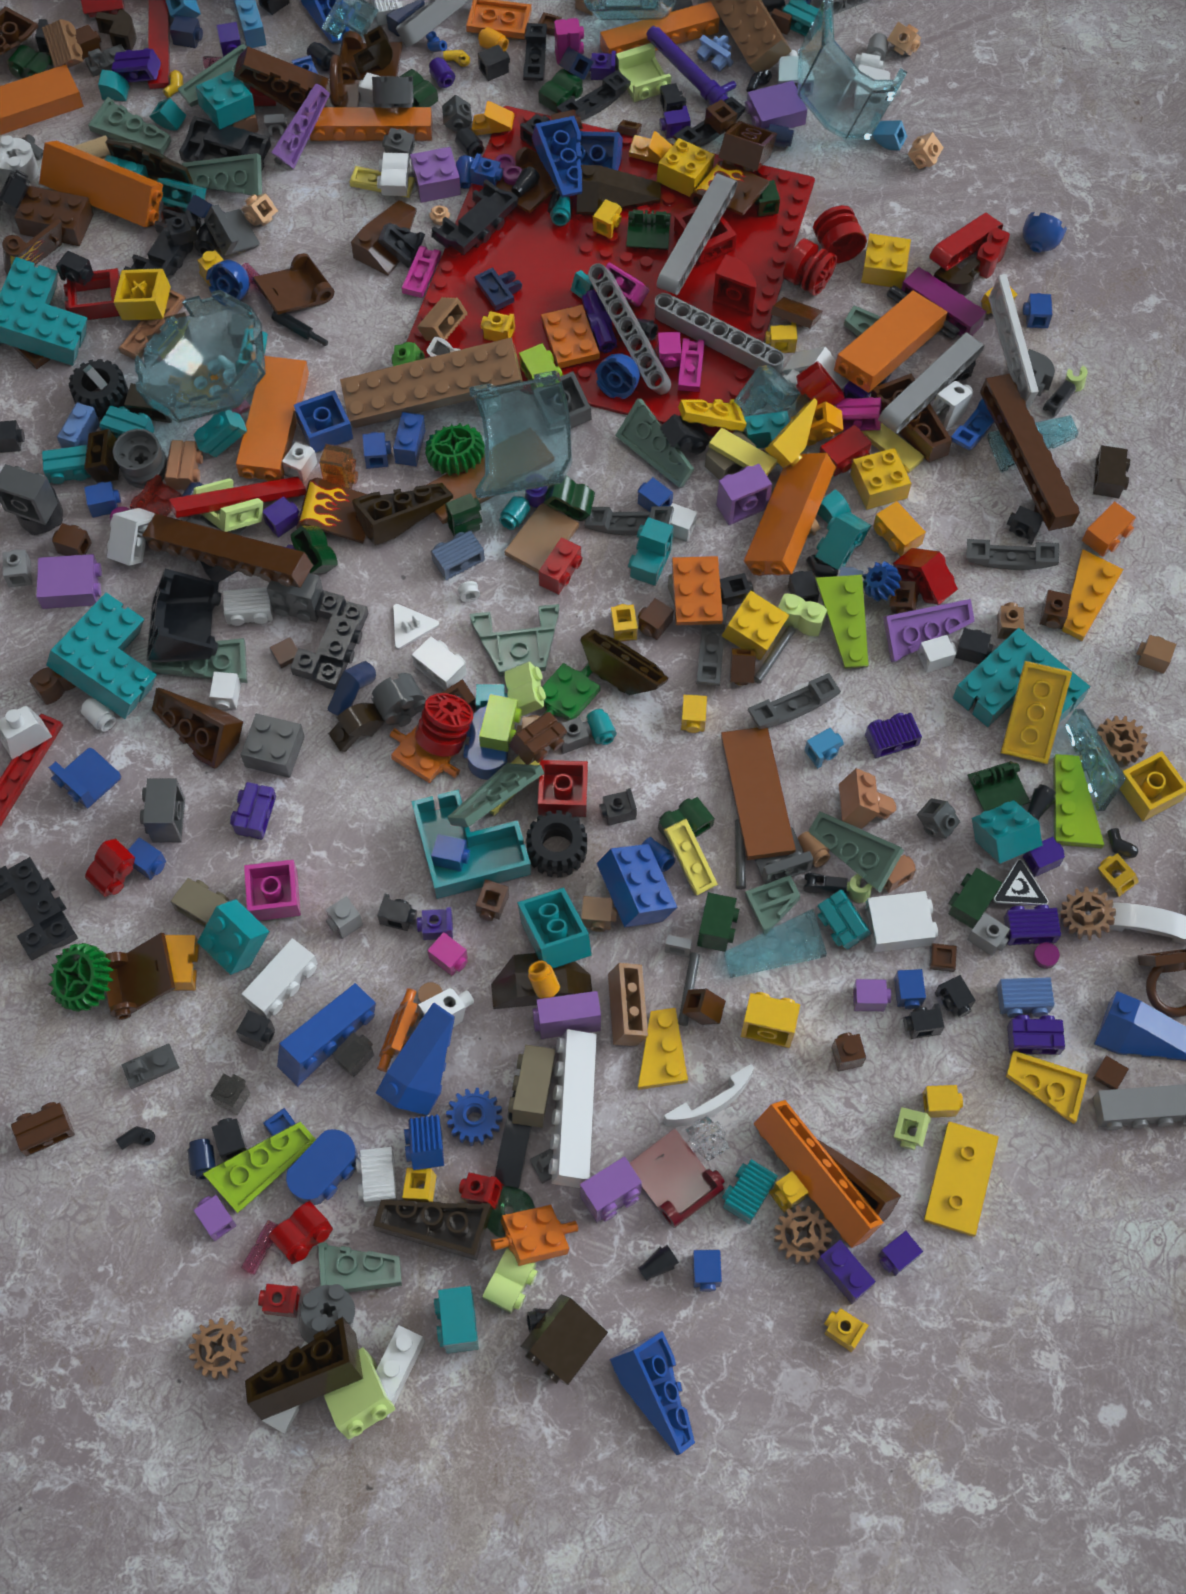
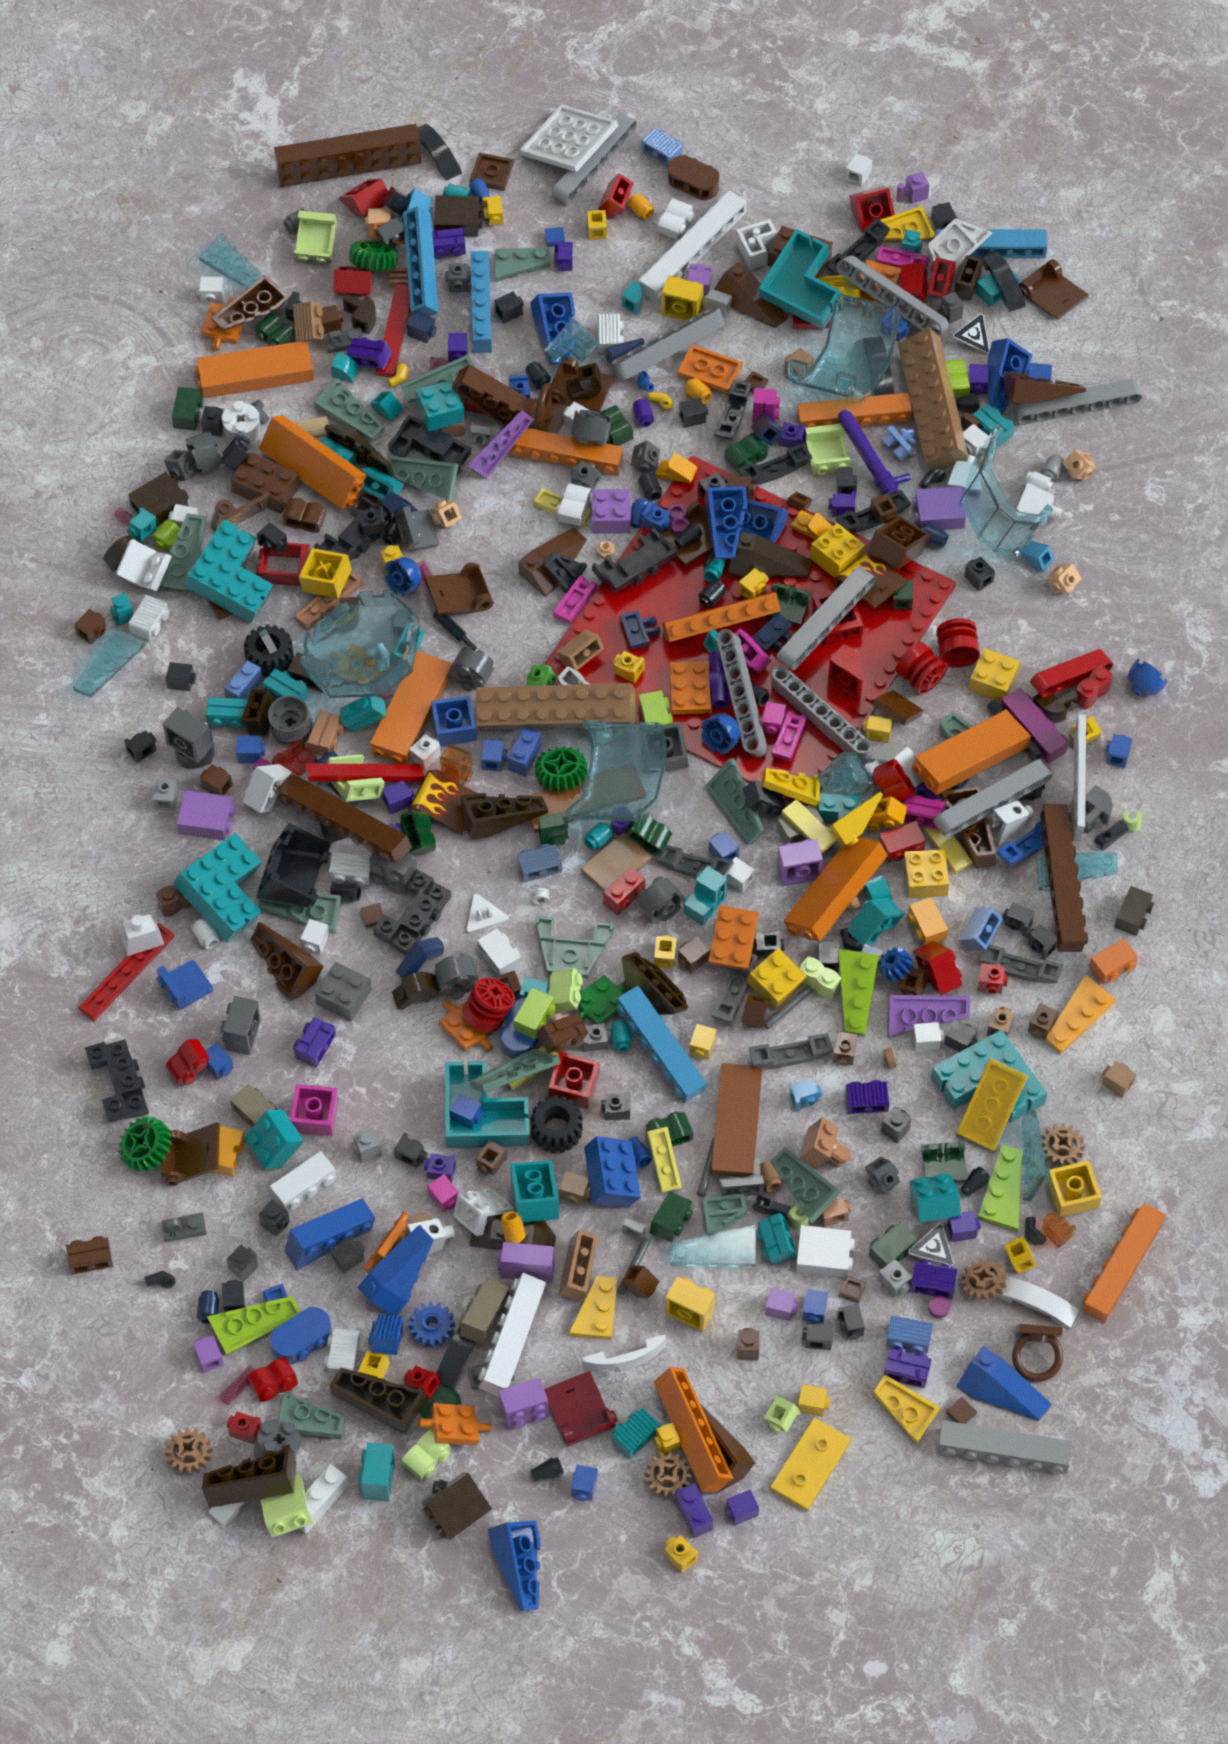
camera: 15 degrees right, 5 degrees down
(105, 241) = (304, 515): none -> reddish brown brick
(251, 632) = (347, 891): none -> black cone
(328, 362) = (471, 668): none -> dark grey brick
(491, 962) = (475, 1206): none -> white bracket
(566, 236) = (712, 593): none -> black brick
(583, 256) = (721, 616): none -> orange brick
(604, 566) = (660, 899): none -> dark grey brick
(642, 260) = (772, 632): none -> dark blue hinge
(649, 726) = (661, 1044): none -> dark azure brick
(793, 34) = (974, 439): none -> white brick
(837, 163) = (979, 573): none -> black brick
(852, 686) = (844, 1048): none -> brick
(904, 685) = (889, 1058): none -> medium nougat tile
(935, 758) = (896, 1124): none -> brick
(958, 524) = (980, 929): none -> medium blue brick
(987, 575) = (992, 978): none -> red brick
(993, 505) = (1018, 918): none -> black brick
(1147, 835) = (1057, 1229): none -> clear orange brick

